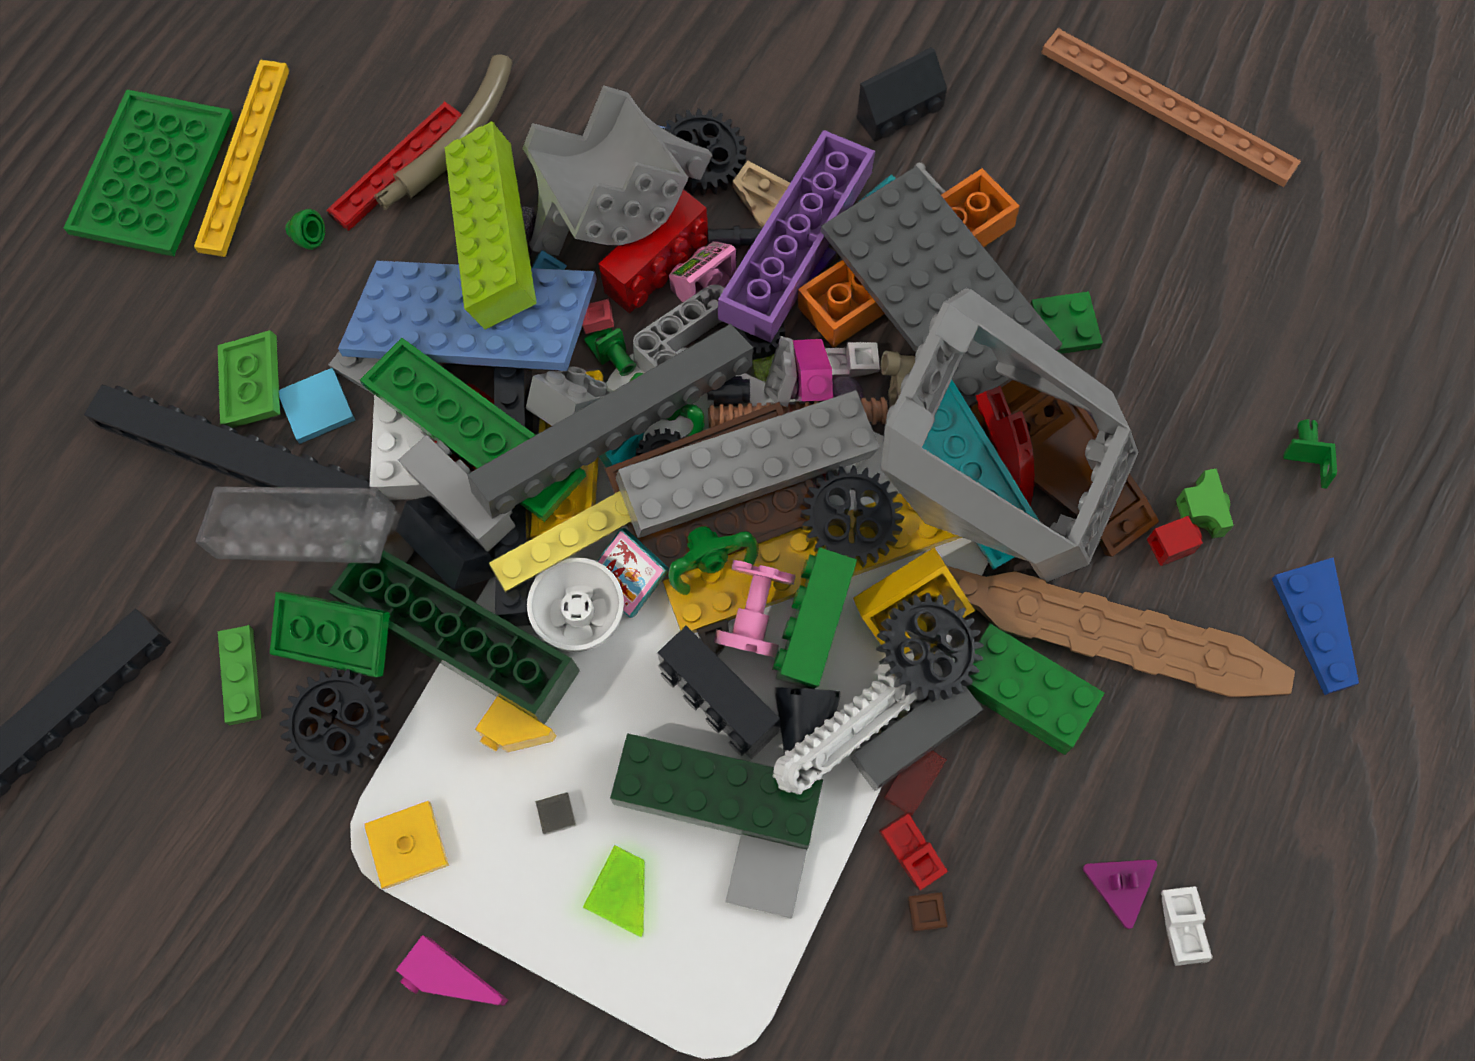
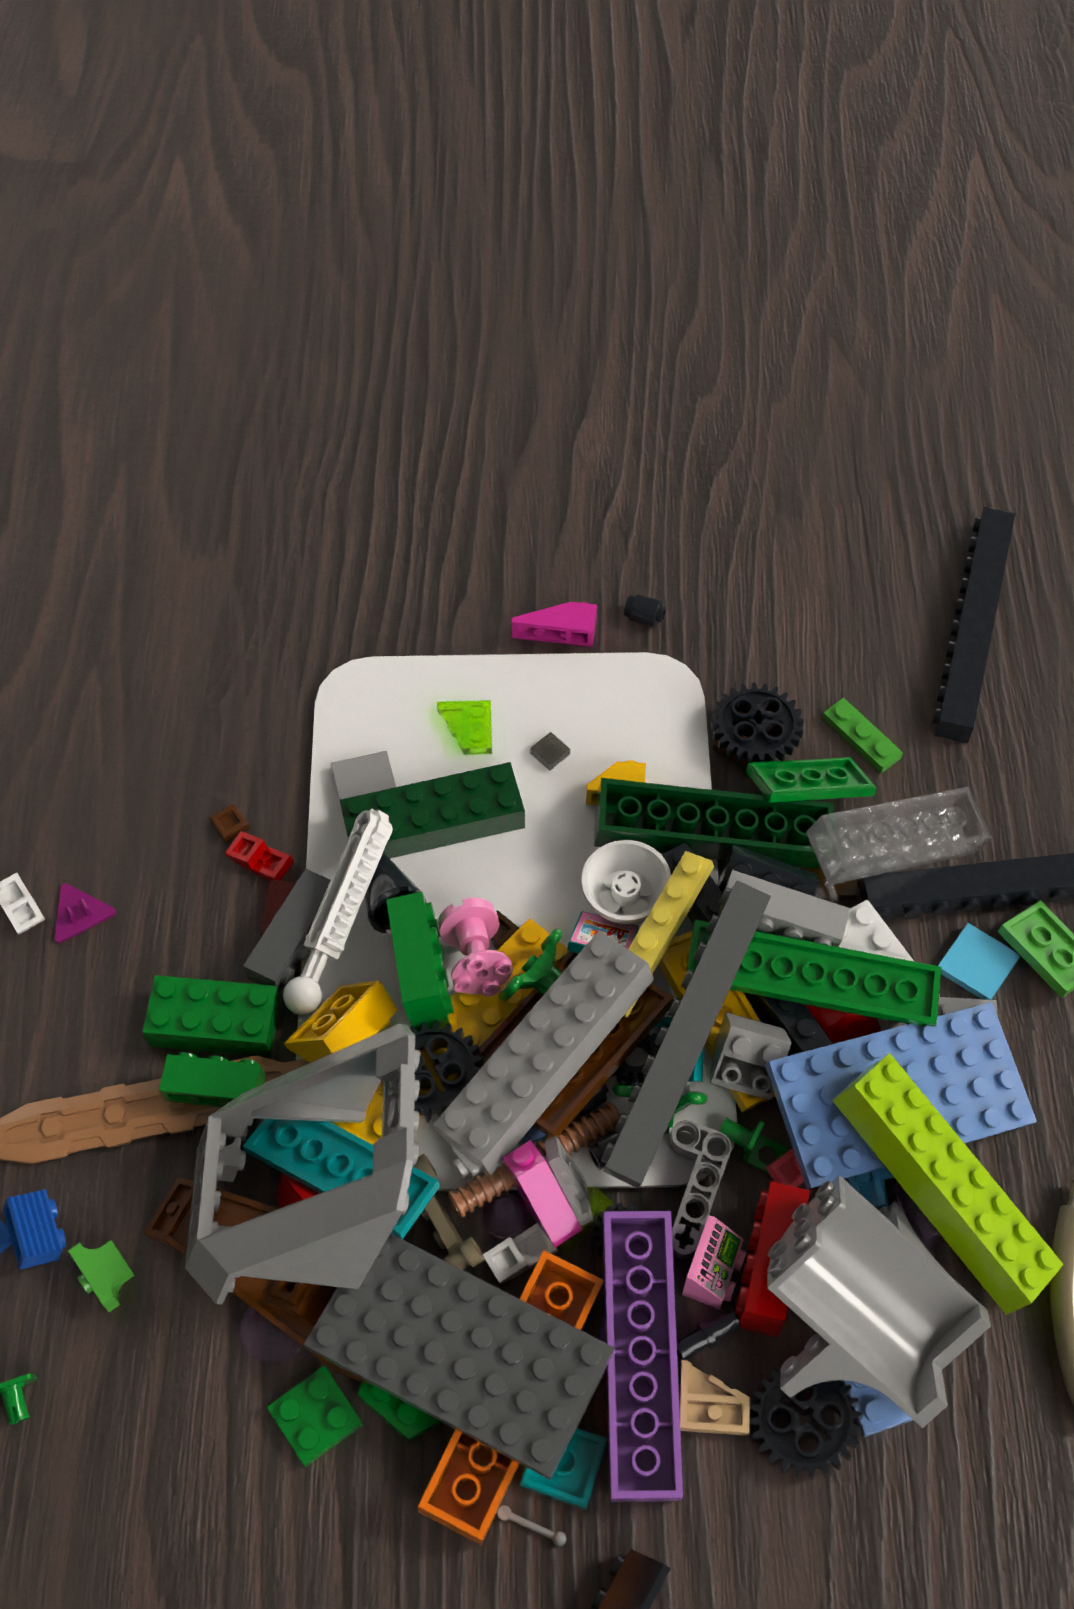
camera: 150 degrees right, 10 degrees down
(345, 946) = (645, 610): none -> black brick
(406, 845) = (647, 682): yellow plate -> none
(718, 692) = (463, 871): black brick -> none
(919, 673) = (307, 977): black gear -> none
(1054, 611) = (208, 1081): none -> green brick
(1175, 540) = (121, 1219): red brick -> none
(1257, 565) = (33, 1229): none -> blue brick

